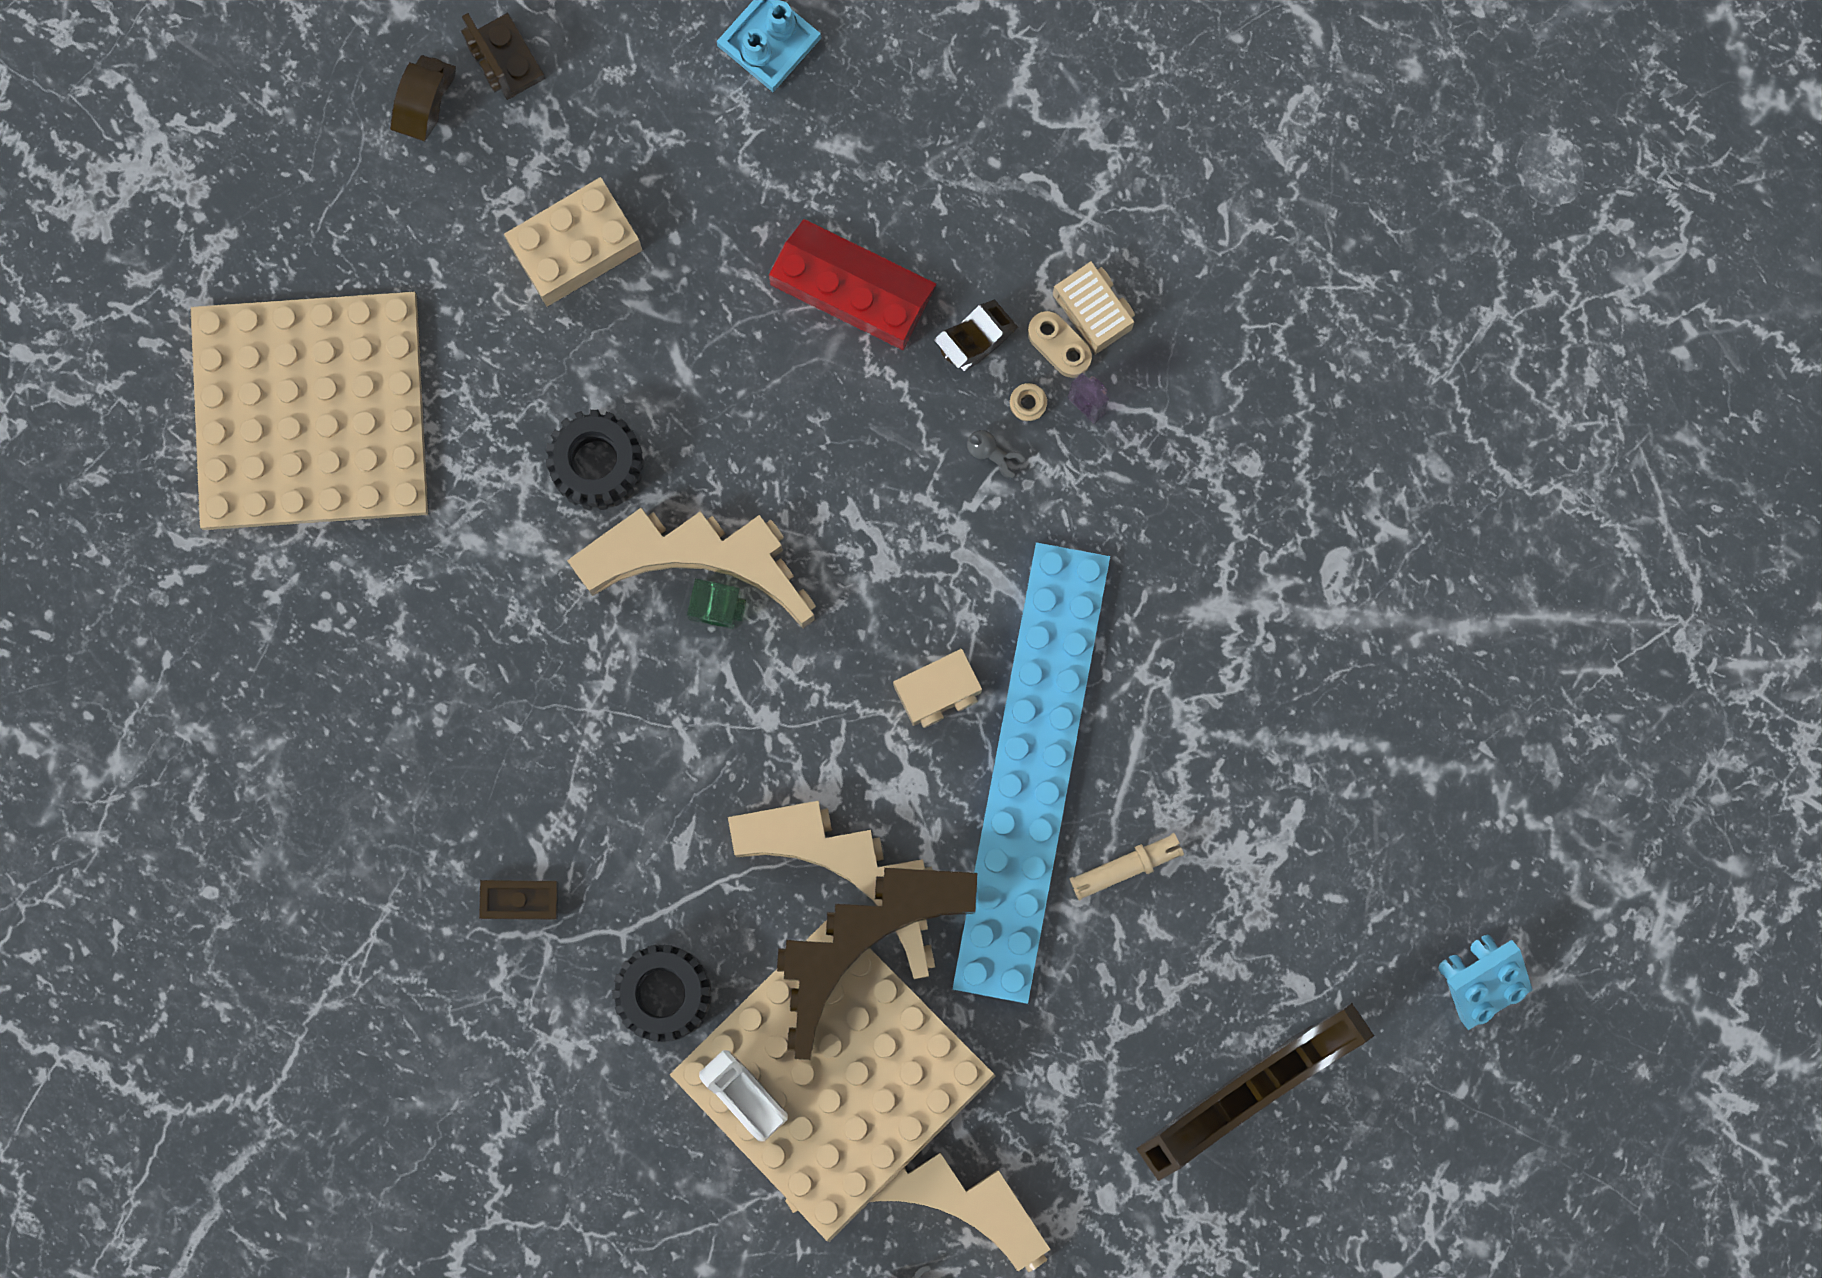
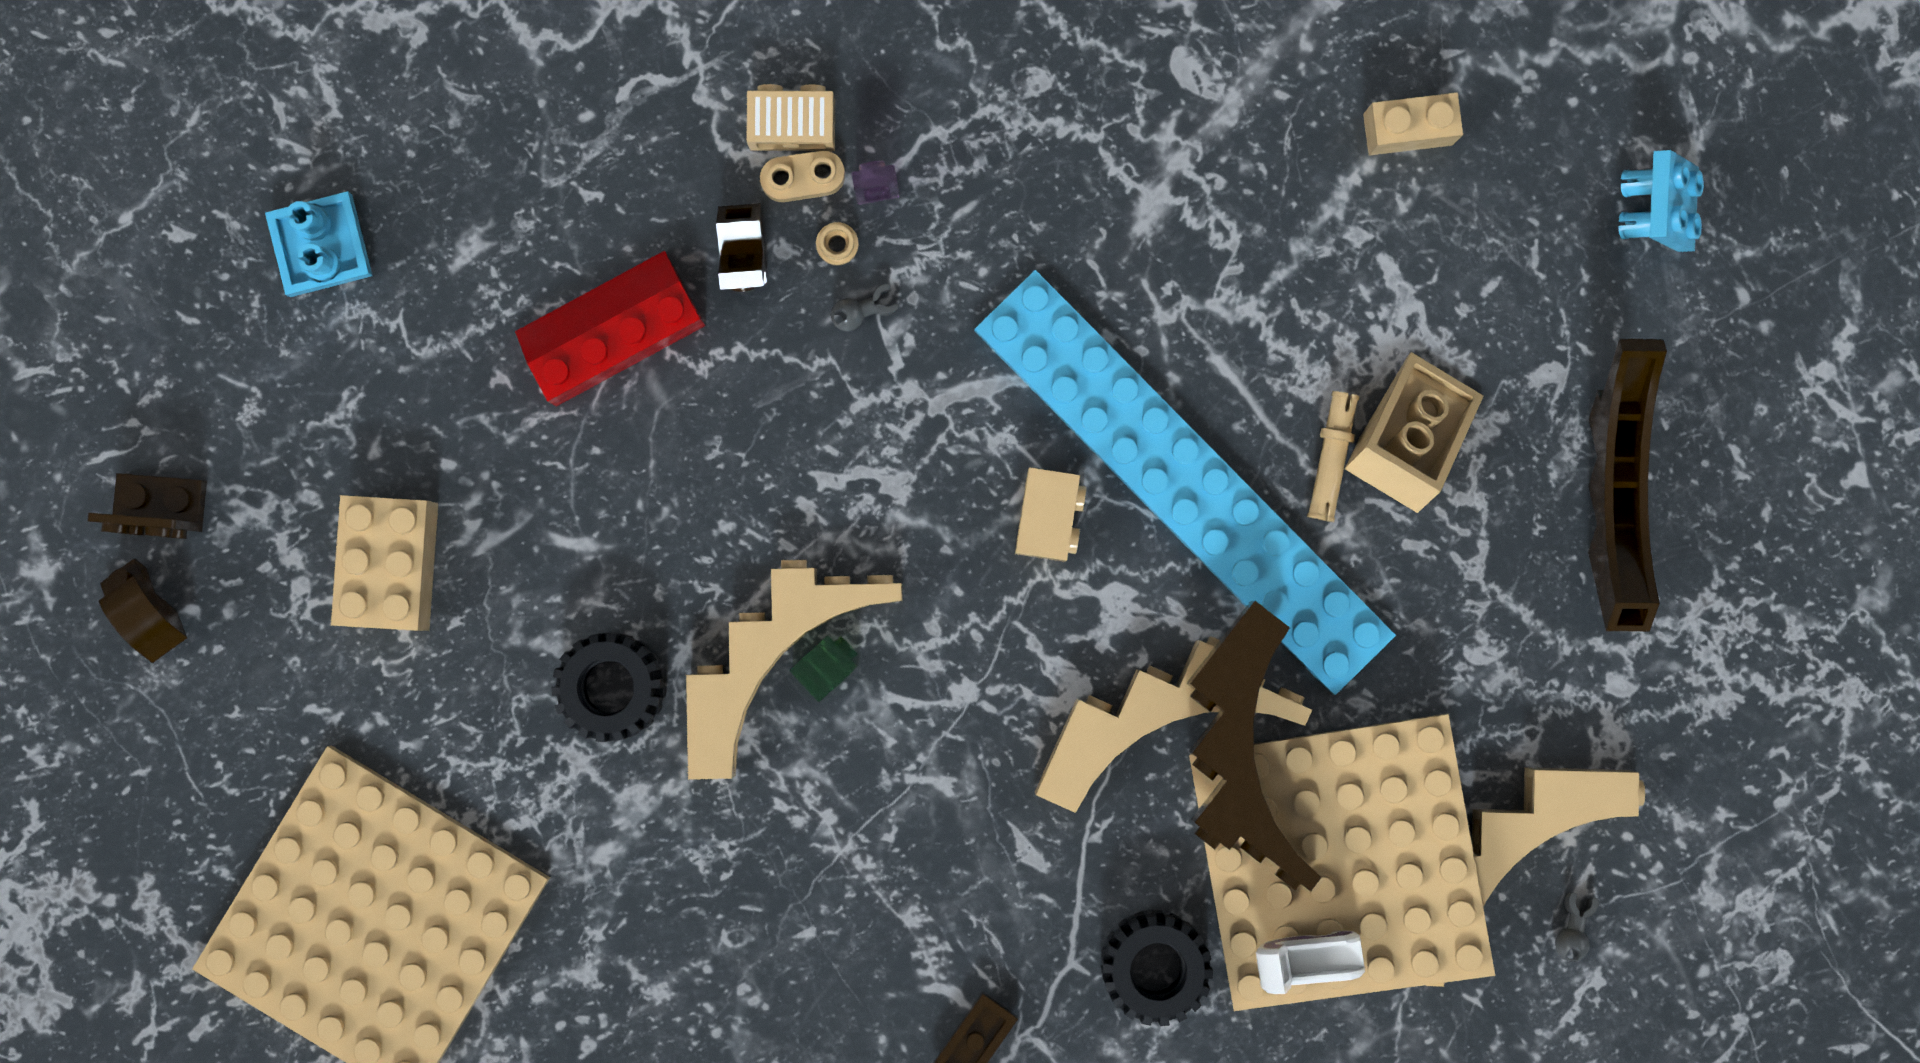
camera: 55 degrees left, 5 degrees up
(1186, 914) = (1415, 433): none -> tan slope
(1411, 755) = (1413, 123): none -> tan brick

